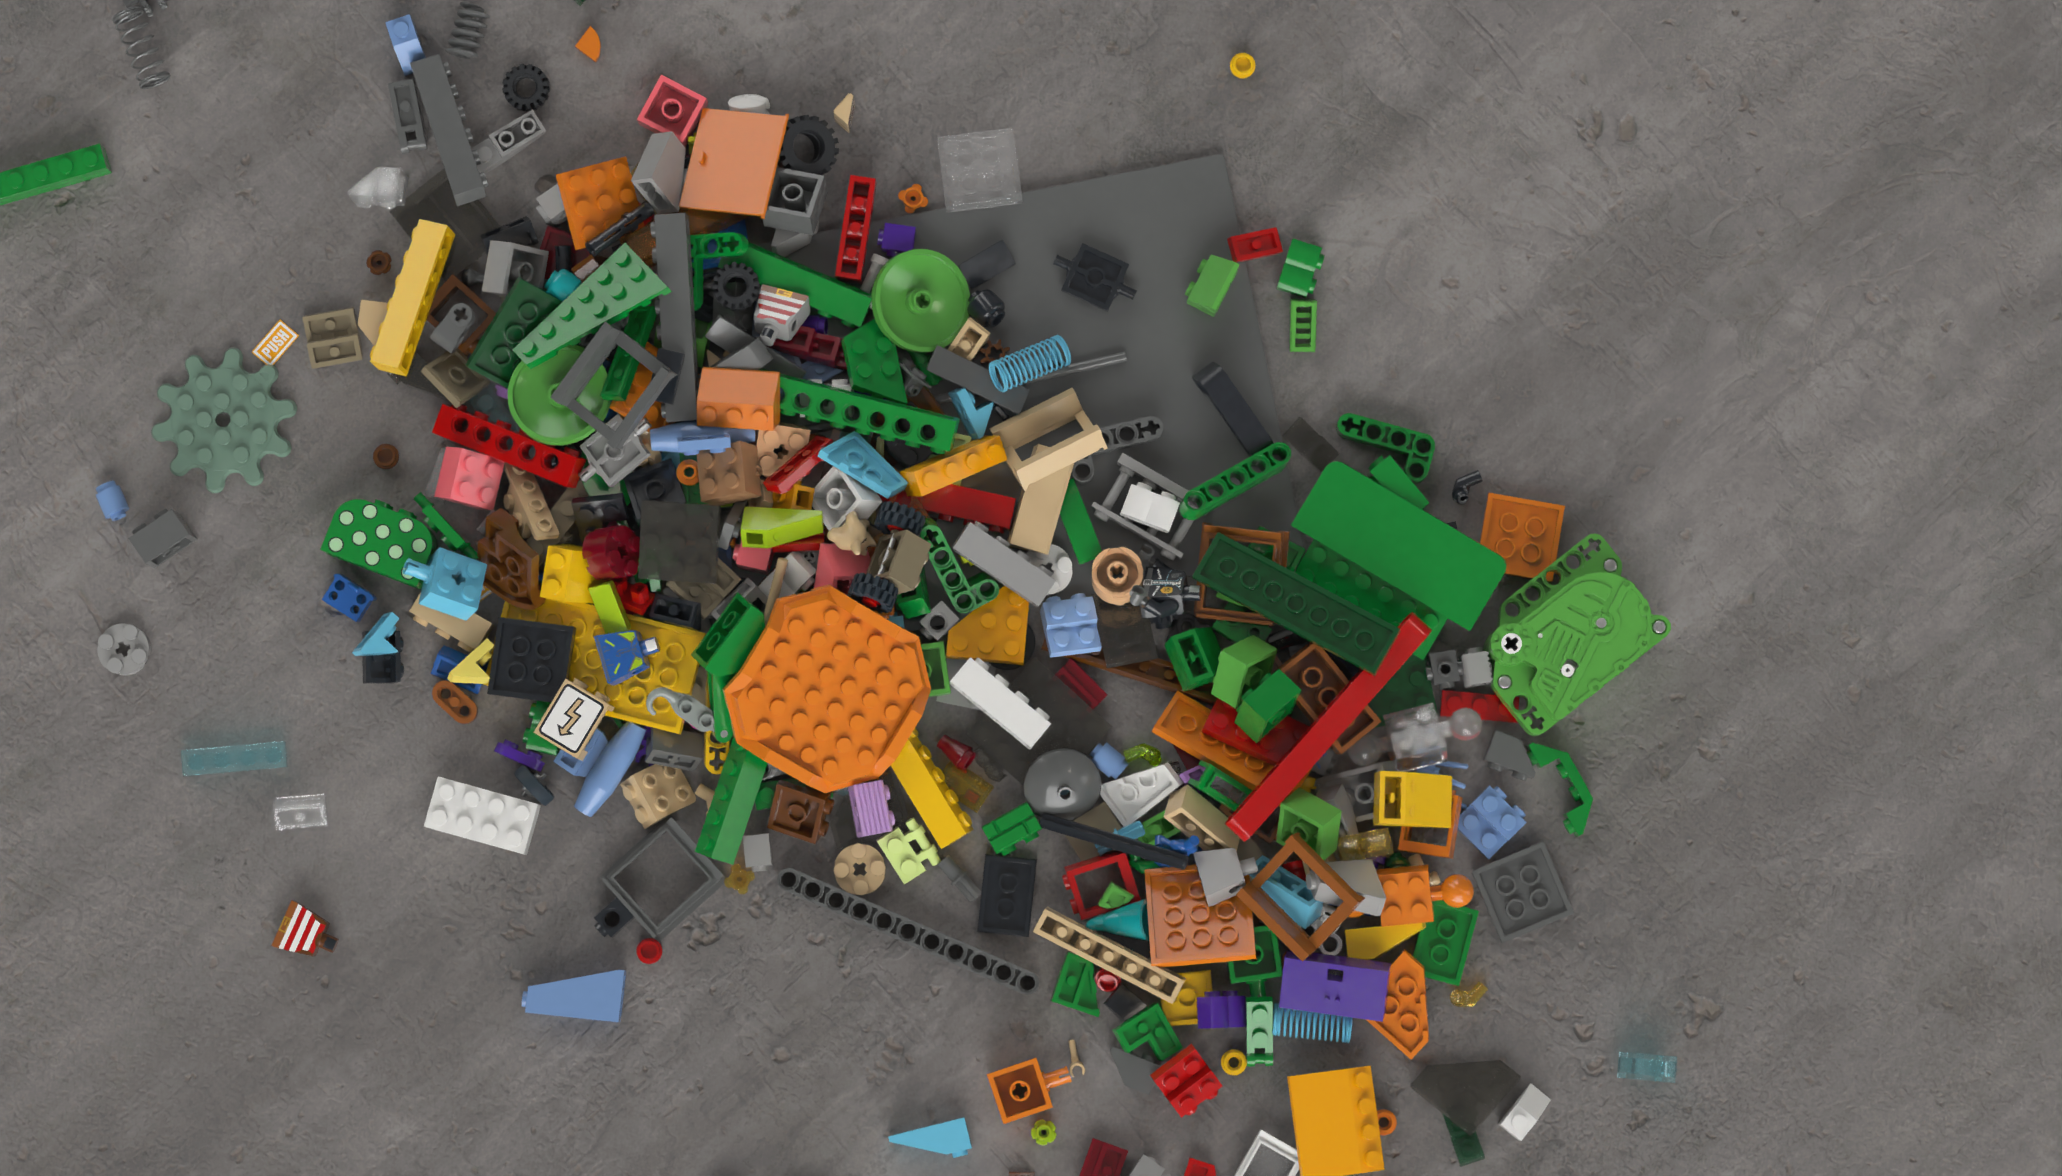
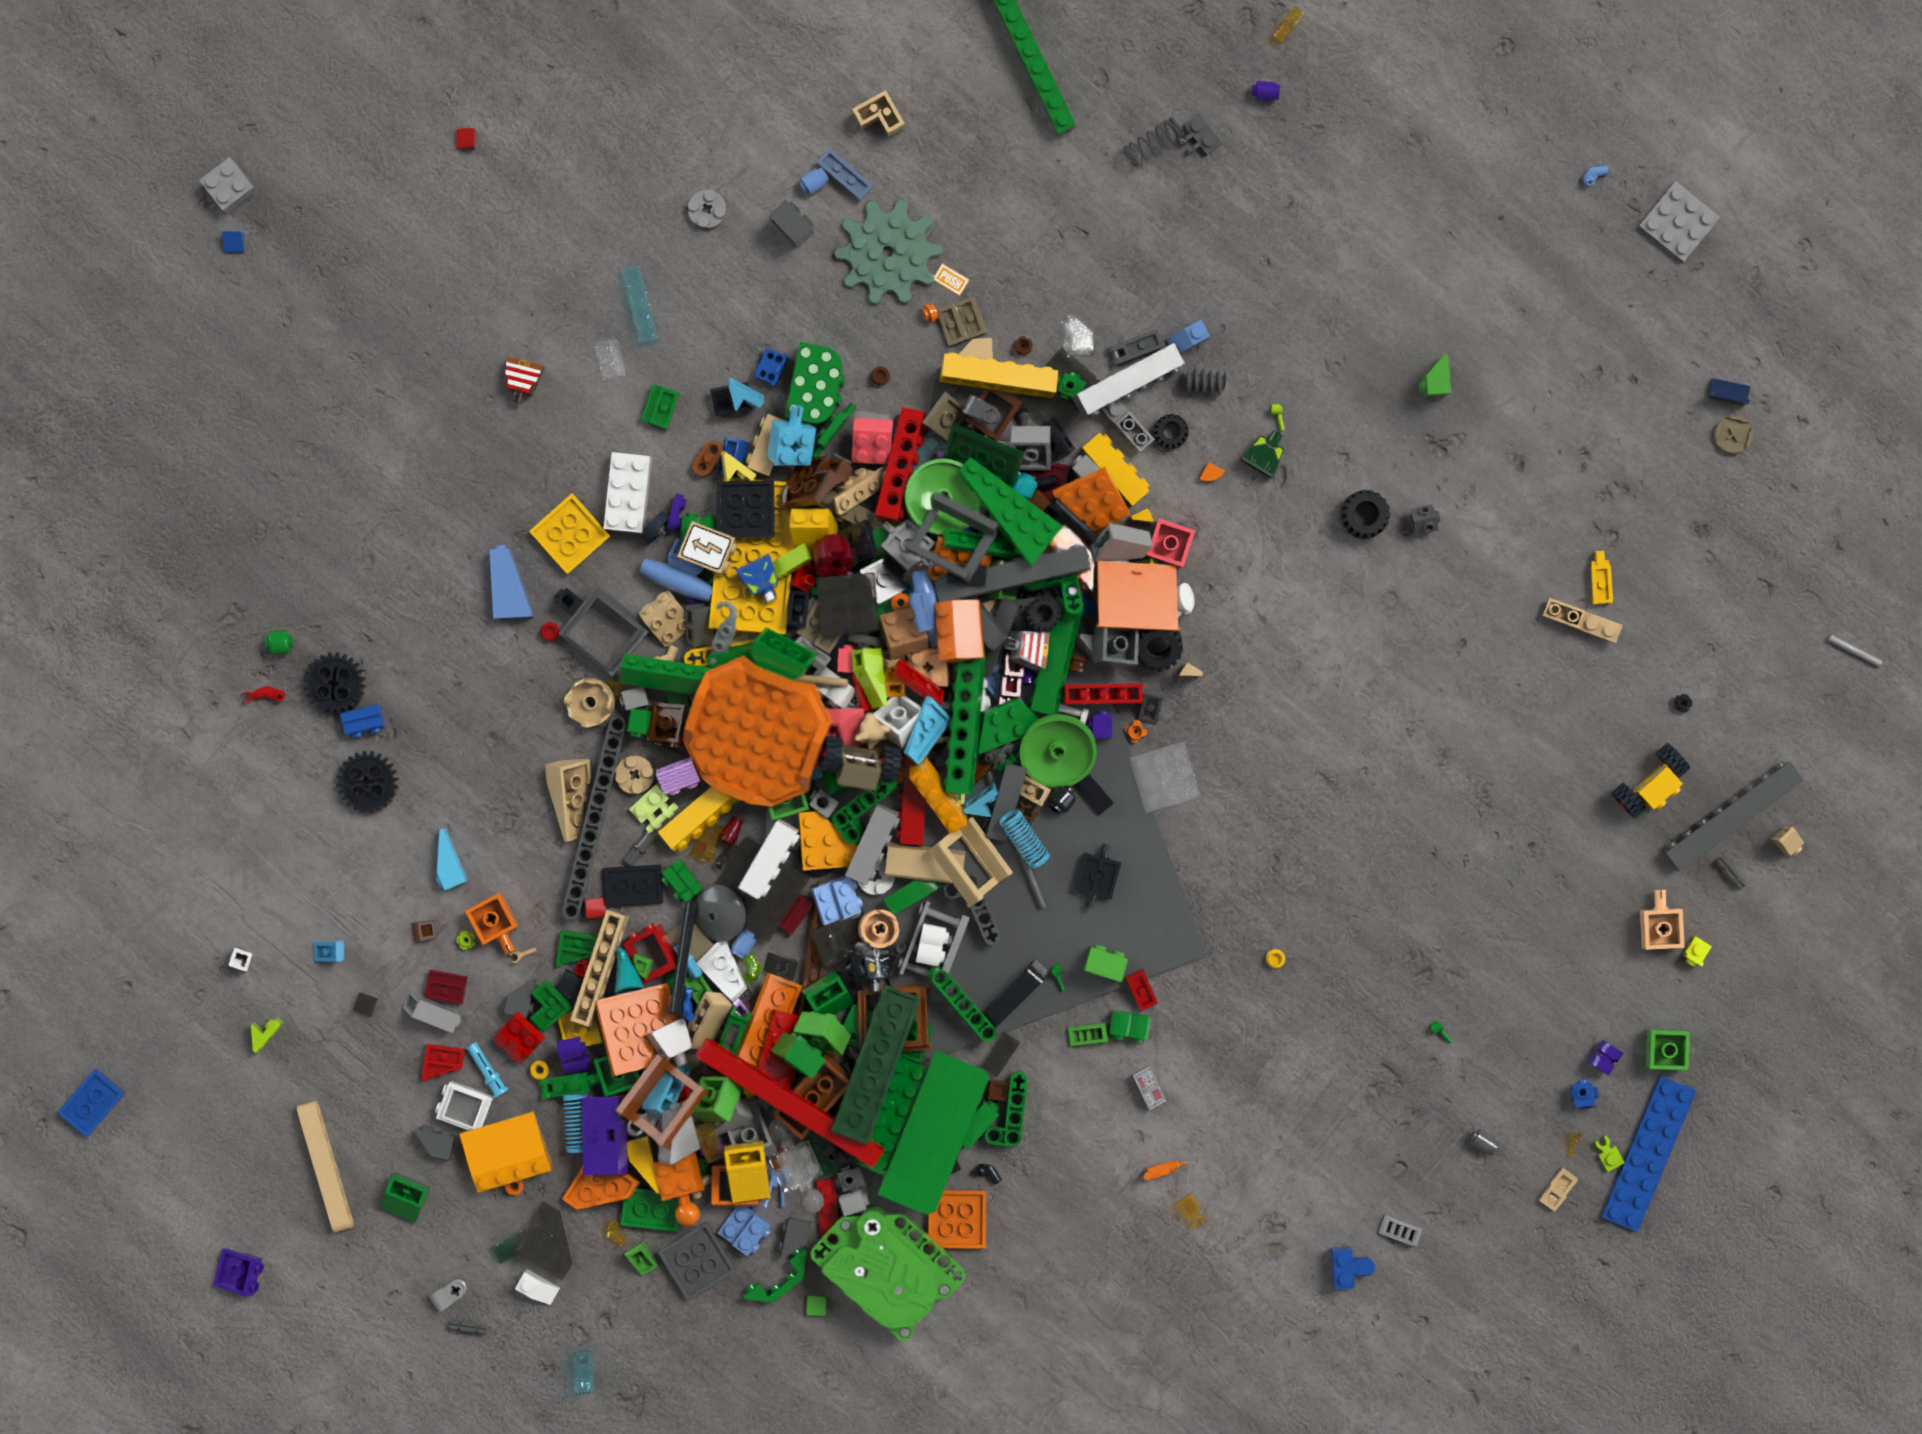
camera: 80 degrees right, 5 degrees up
(33, 395) = (882, 109): none -> tan brick
(110, 459) = (844, 174): none -> sand blue plate
(314, 377) = (930, 313): none -> orange plate
(375, 754) = (660, 406): none -> green plate
(441, 198) = (1072, 378): none -> green brick
(523, 902) = (570, 533): none -> yellow plate
(583, 152) = (1123, 475): none -> yellow brick
(631, 141) = (1143, 516): none -> yellow slope
(752, 929) = (577, 702): none -> tan plate
(790, 849) = (639, 722): none -> green brick
(811, 257) = (1077, 663): none -> reddish brown wheel
(862, 961) = (568, 787): none -> tan wedge
(887, 173) = (1151, 705): none -> dark grey slope
(1029, 950) = (595, 907): none -> red slope
(1146, 715) = (781, 966): none -> clear smoke slope
(1211, 351) = (1056, 971): none -> green hand
(1234, 1127) = (492, 1078): none -> medium azure pin
(1358, 454) = (998, 1090): none -> reddish brown plate
(1386, 258) = (1149, 1087): none -> slope
(1406, 679) = (836, 1154): none -> black brick
(1496, 257) = (1162, 1169): none -> orange piece
(1507, 965) = (641, 1258): none -> bright green slope
(1553, 229) = (1189, 1208): none -> clear yellow plate
(1606, 743) = (816, 1305): none -> bright green tile
(1663, 38) = (1346, 1267): none -> blue brick

